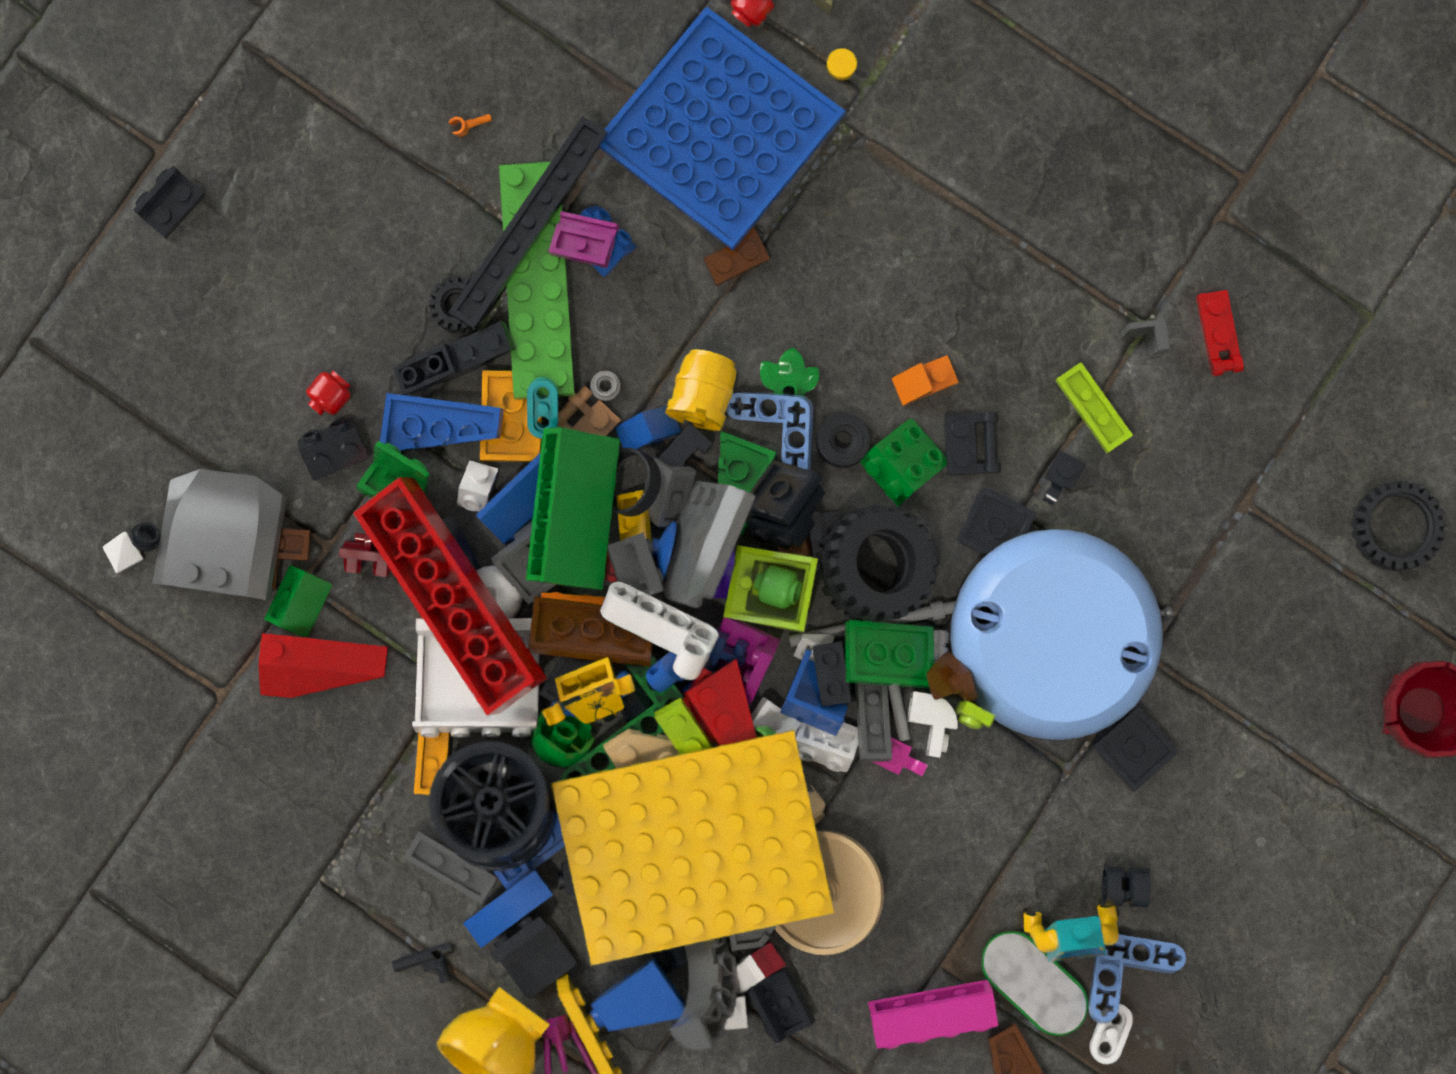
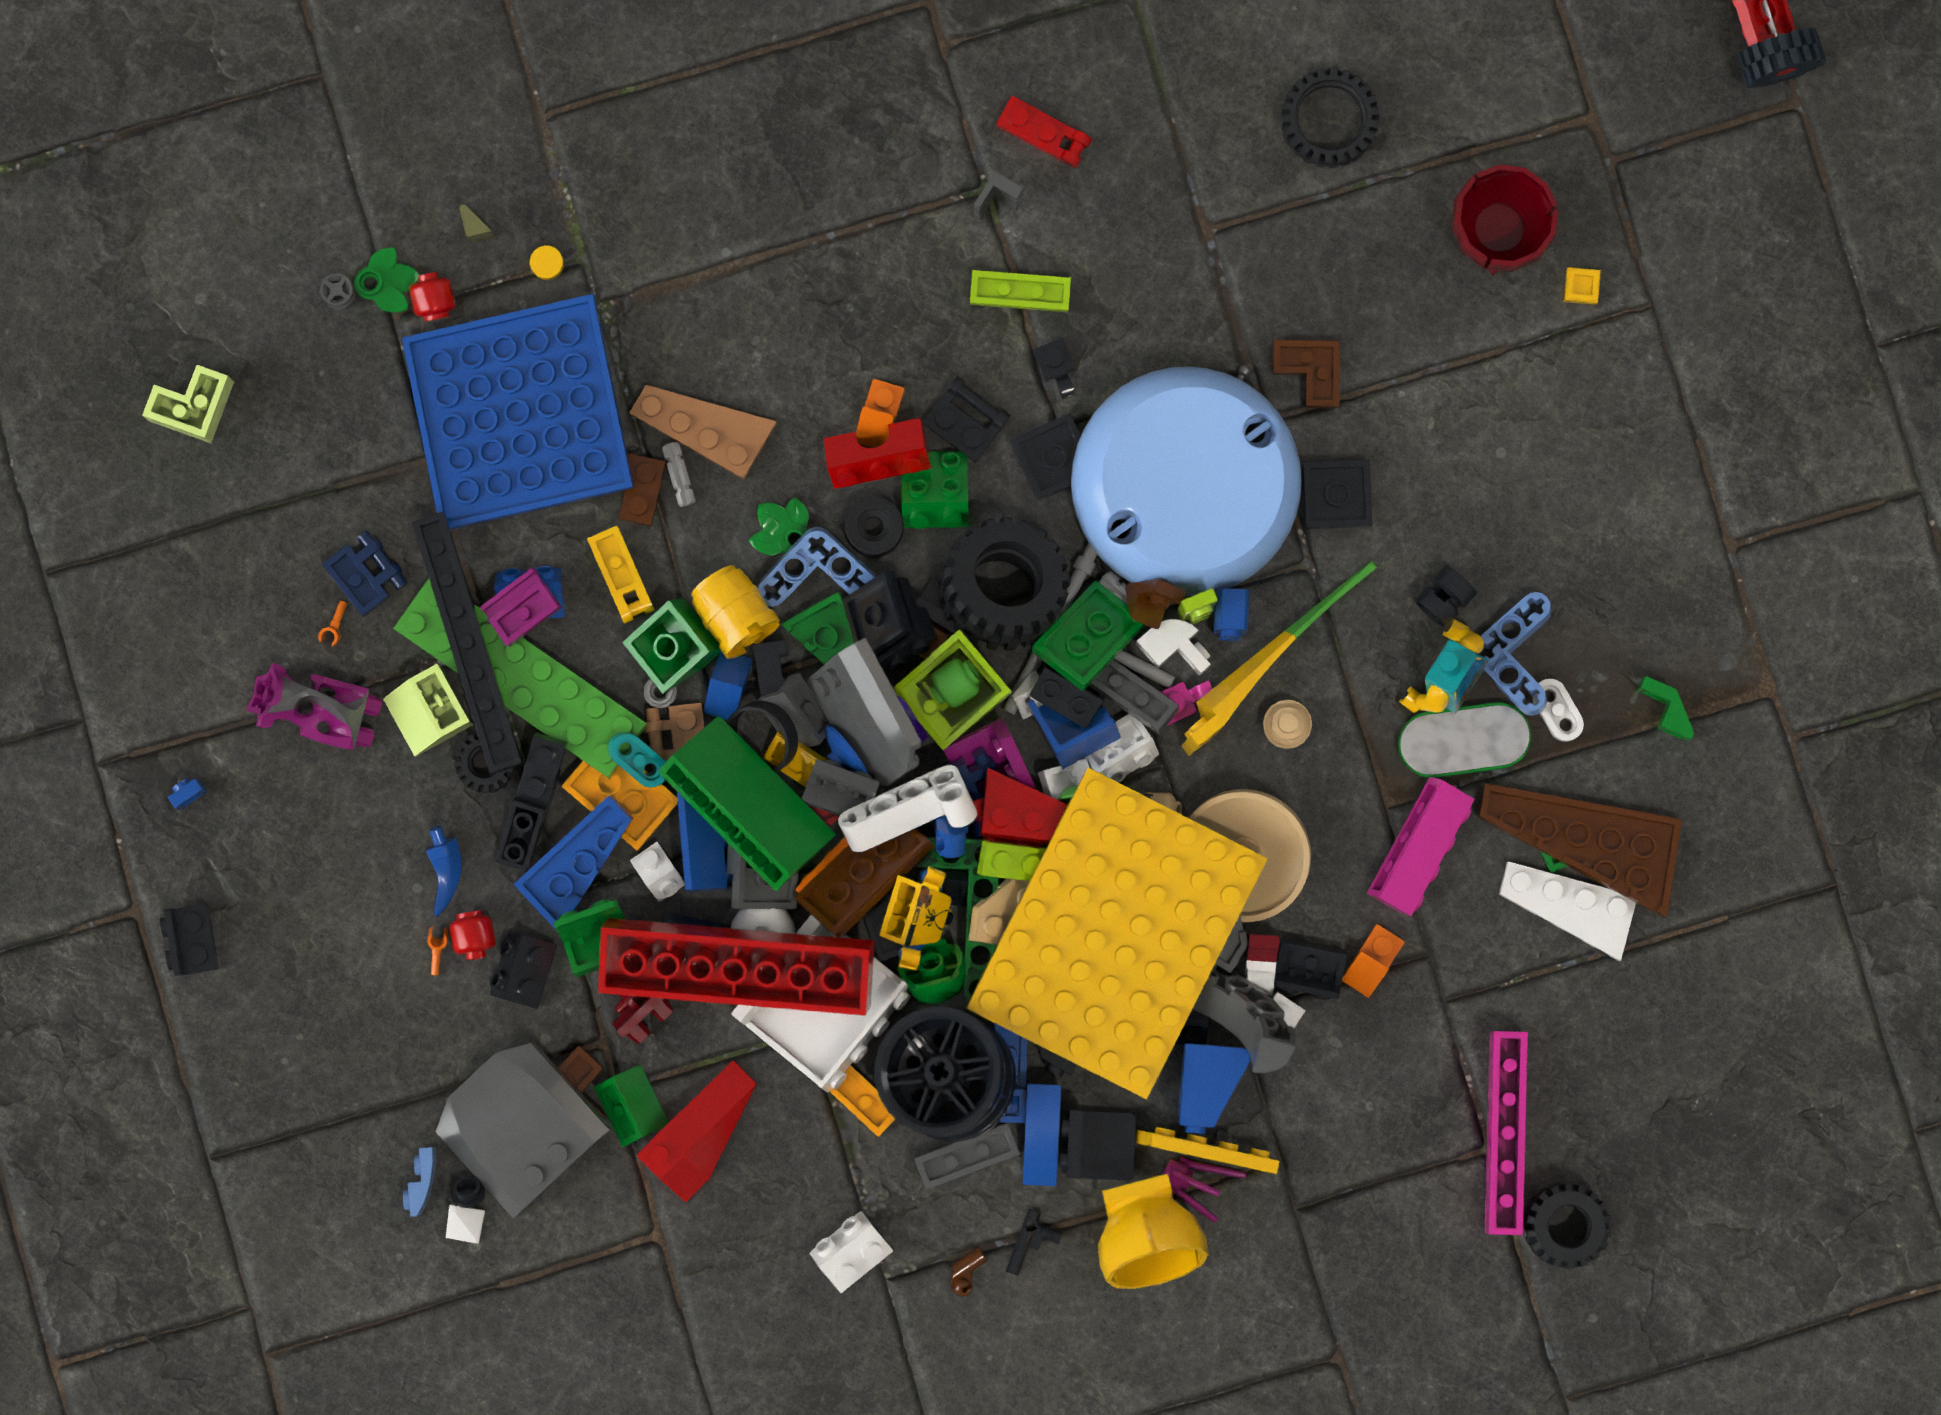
camera: 45 degrees left, 0 degrees up
(118, 502) = (419, 1192): none -> medium blue slope
(268, 116) = (186, 793): none -> blue plate
(301, 375) = (437, 946): none -> orange hand
(317, 839) = (850, 1251): none -> white bracket
(364, 336) = (447, 866): none -> blue bar
(366, 931) = (963, 1270): none -> reddish brown arm
(385, 125) = (279, 697): none -> magenta hips
(461, 234) = (427, 710): none -> yellowish green slope
(512, 114) = (355, 578): none -> dark blue plate
(644, 367) = (672, 645): none -> green slope
(665, 290) = (620, 573): none -> yellow plate
(768, 275) = (678, 474): none -> light grey axle
(818, 275) = (713, 431): none -> medium nougat wing
(823, 1045) = (1372, 961): none -> orange slope
(910, 417) = (901, 454): none -> red arch
(922, 788) = (1223, 700): none -> yellow plate
(942, 846) = (1287, 724): none -> tan plate
(988, 743) = (1231, 614): none -> blue brick
(1217, 657) = (1318, 362): none -> reddish brown plate
(1428, 803) = (1582, 286): none -> yellow tile

